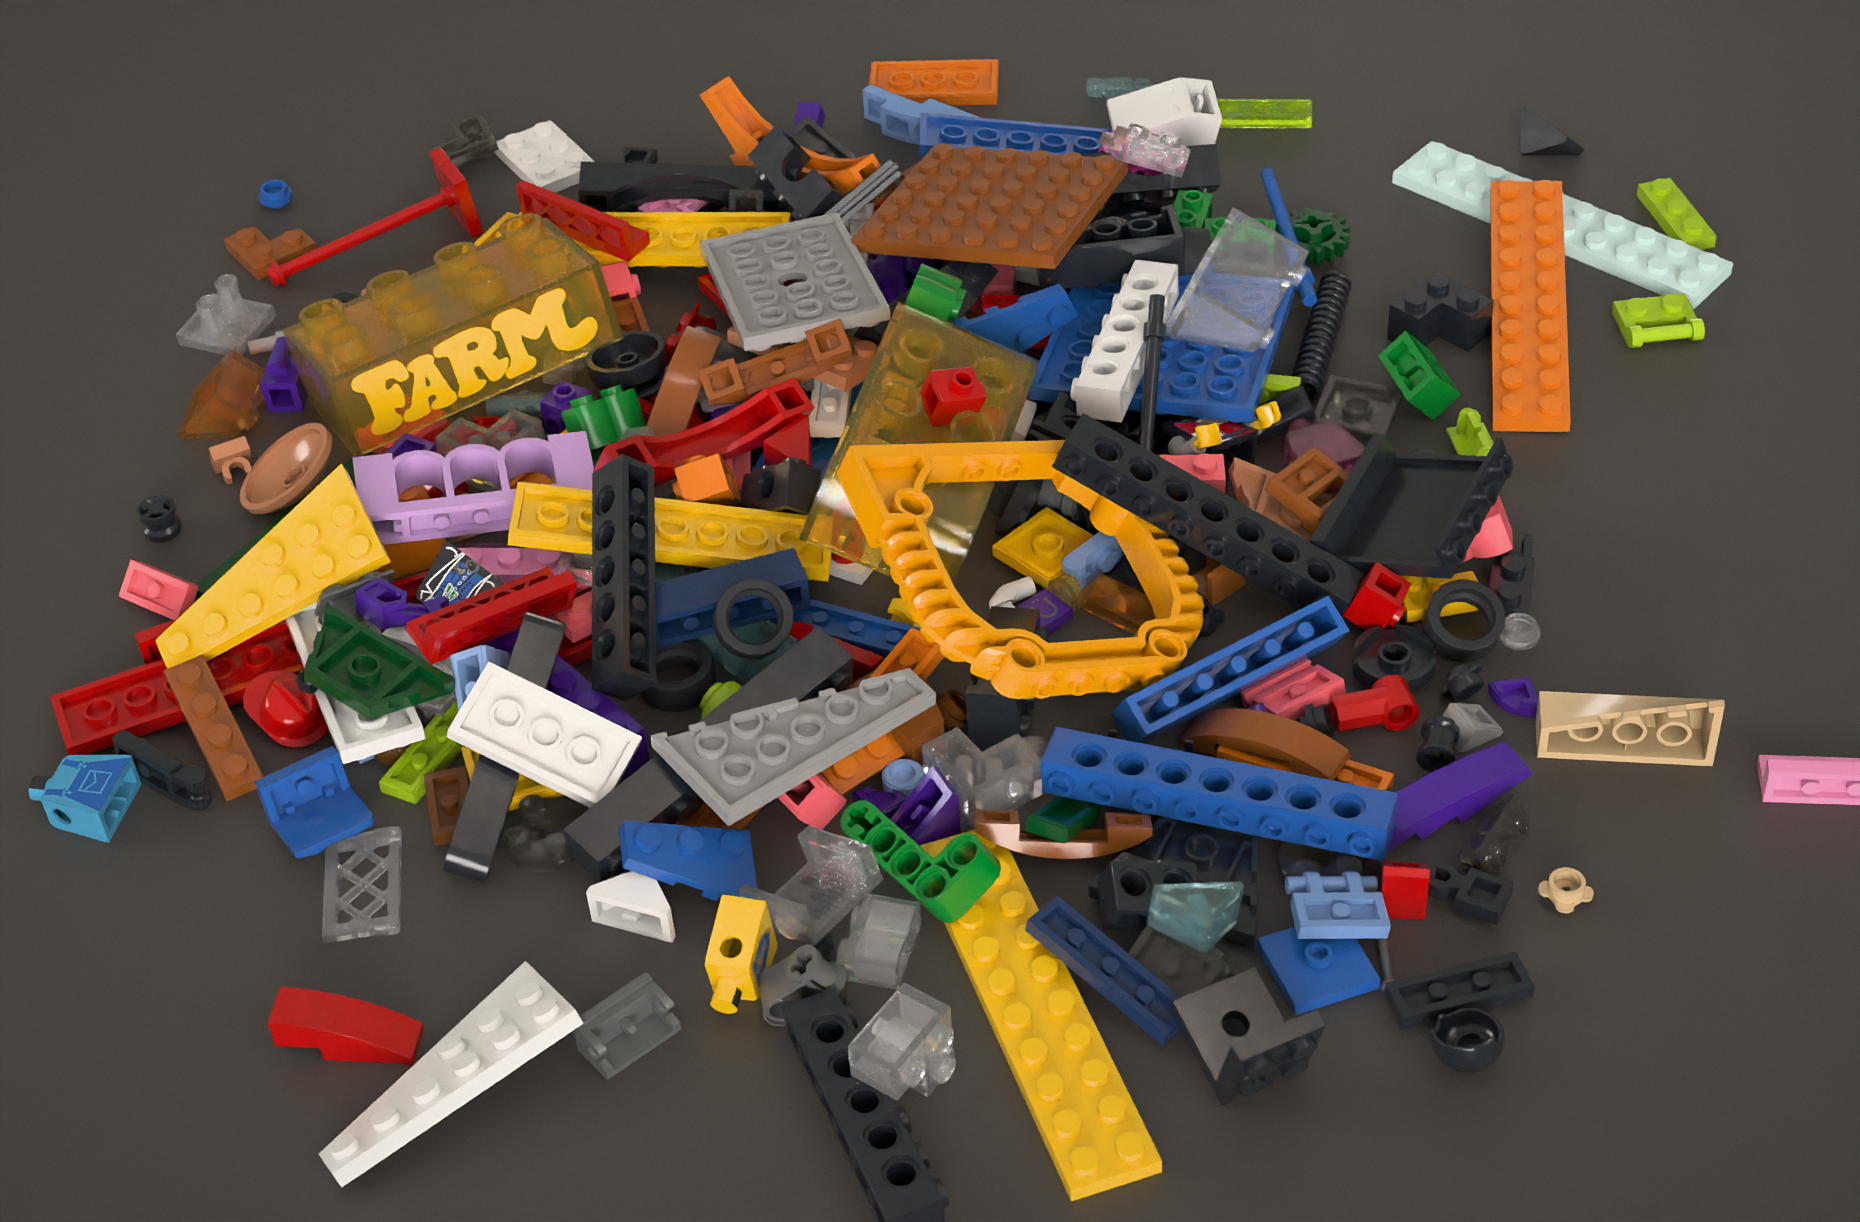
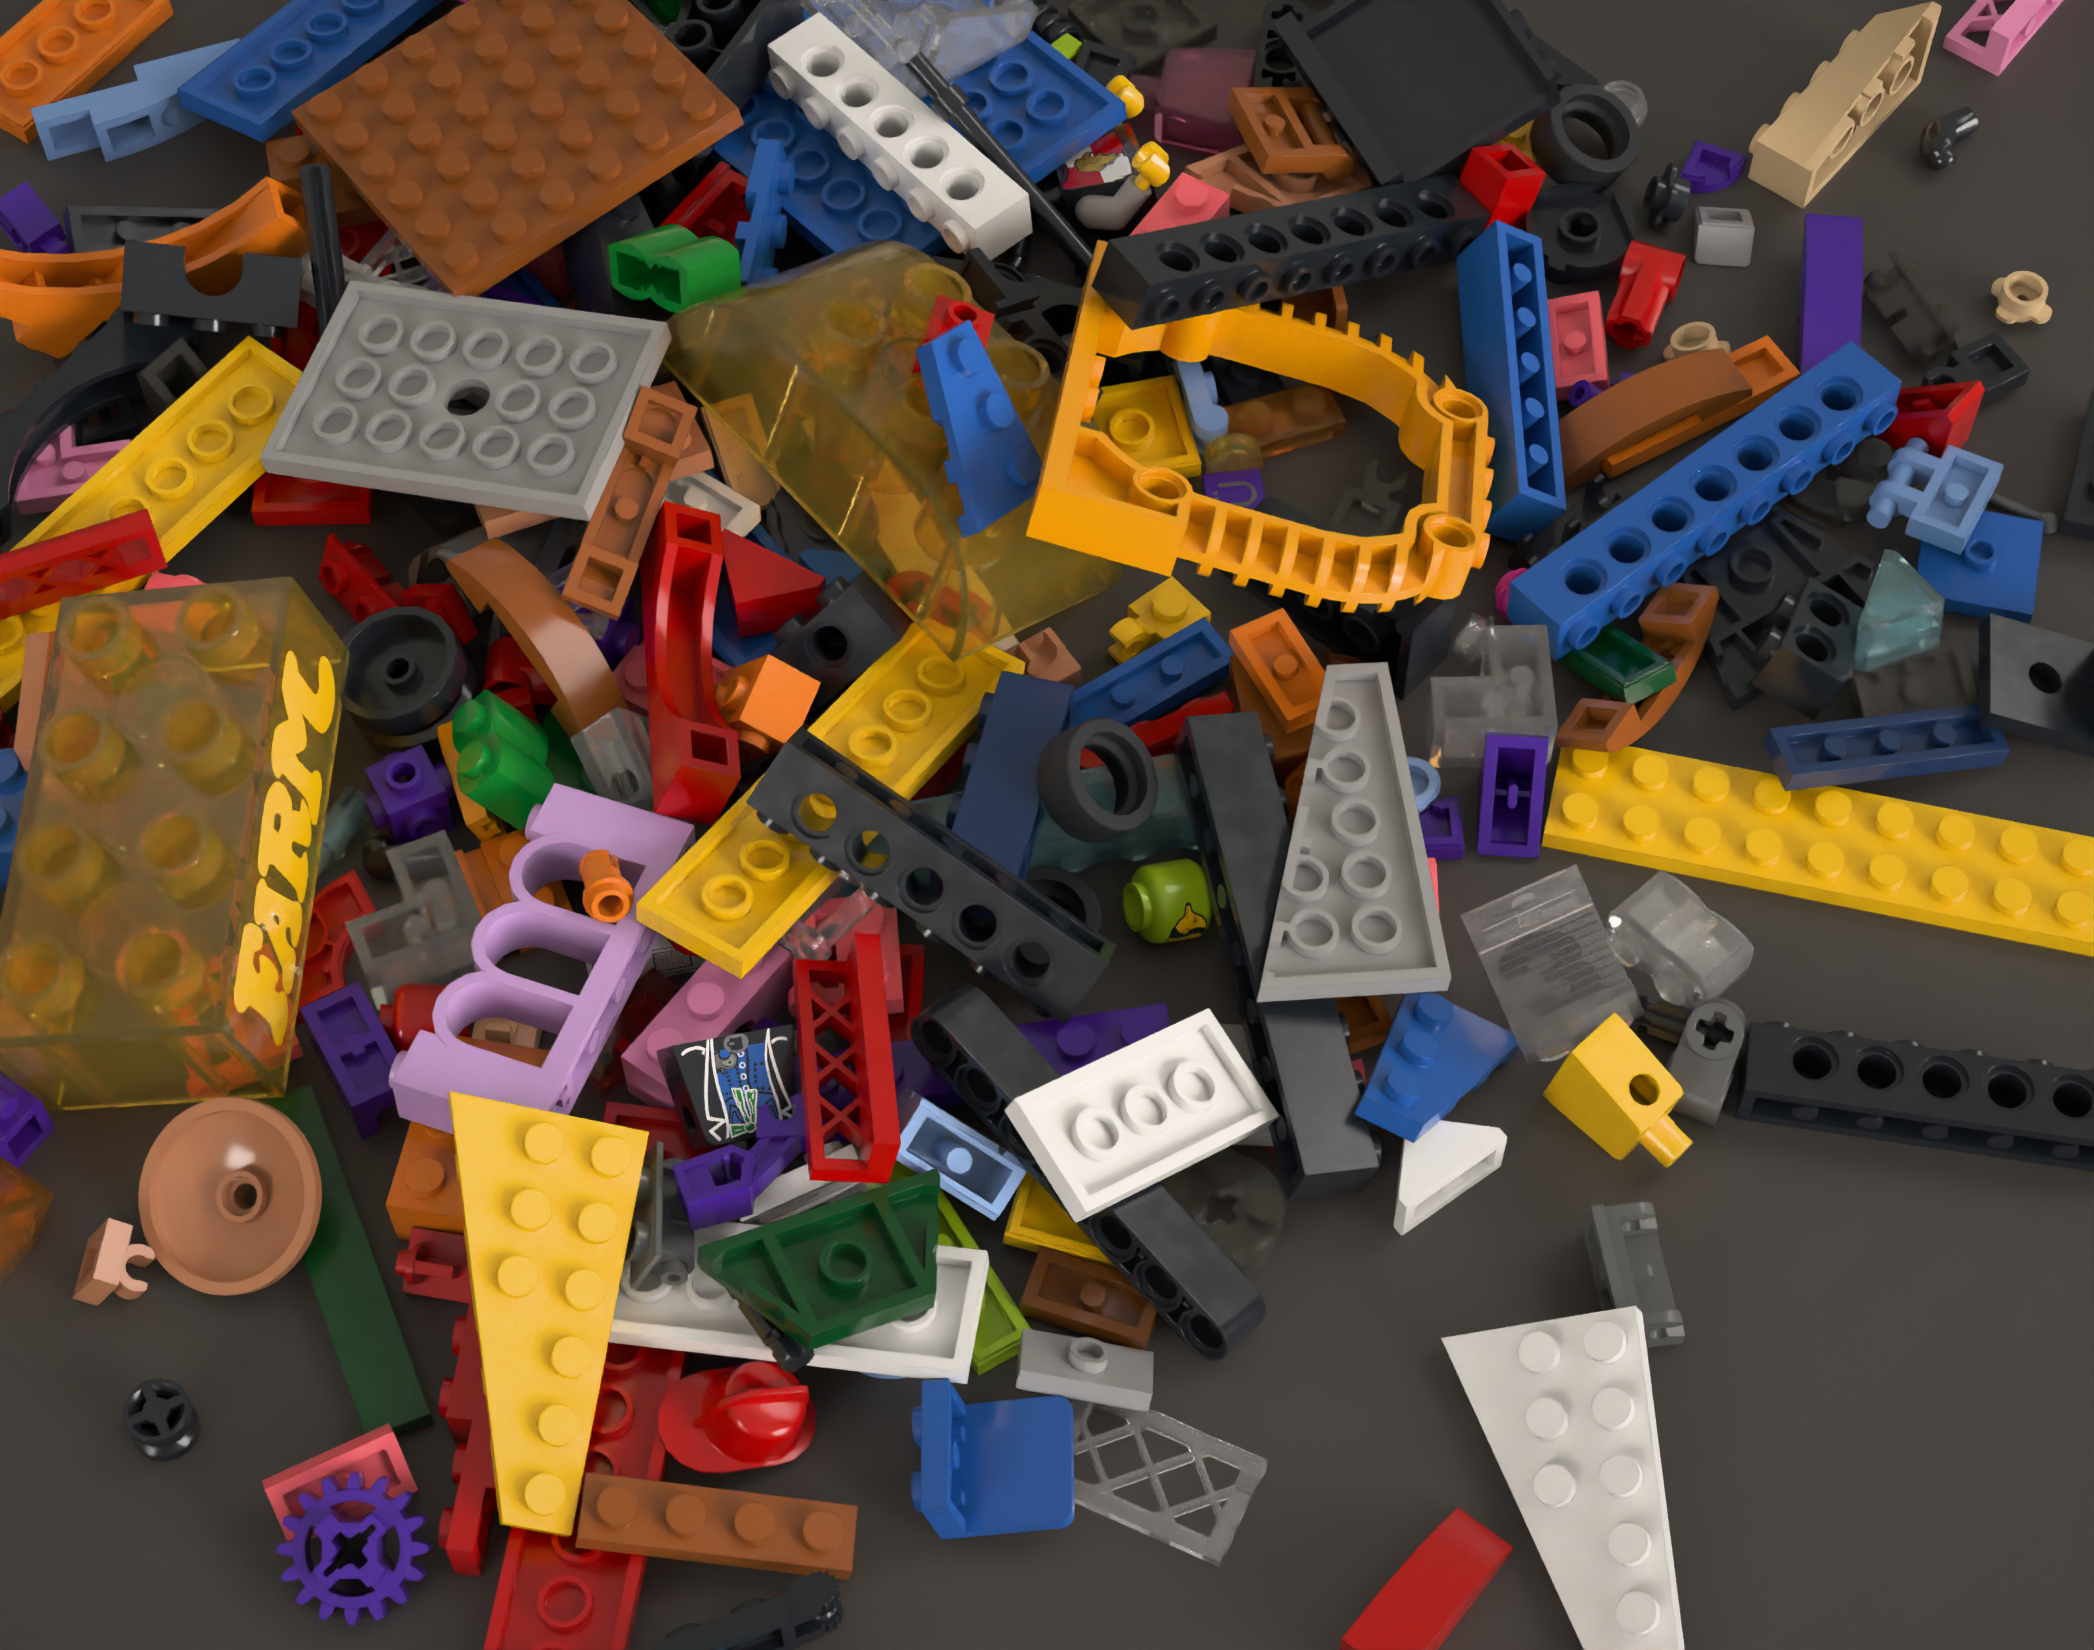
camera: 60 degrees left, 15 degrees up
(123, 609) = (329, 1527): none -> dark purple gear
(399, 820) = (1085, 1370): none -> light grey plate
(526, 471) = (606, 892): none -> orange pin
(856, 591) = (1047, 658): none -> nougat tile
(905, 409) = (984, 434): none -> blue wing
(905, 1045) = (1904, 993): clear brick -> none
(941, 884) = (1582, 835): green beam -> none
(1318, 719) = (1634, 352): black plate -> none
(1359, 747) = (1693, 338): none -> tan plate
(1437, 748) = (1743, 273): black bush -> none
(1670, 789) = (1940, 135): none -> black arm

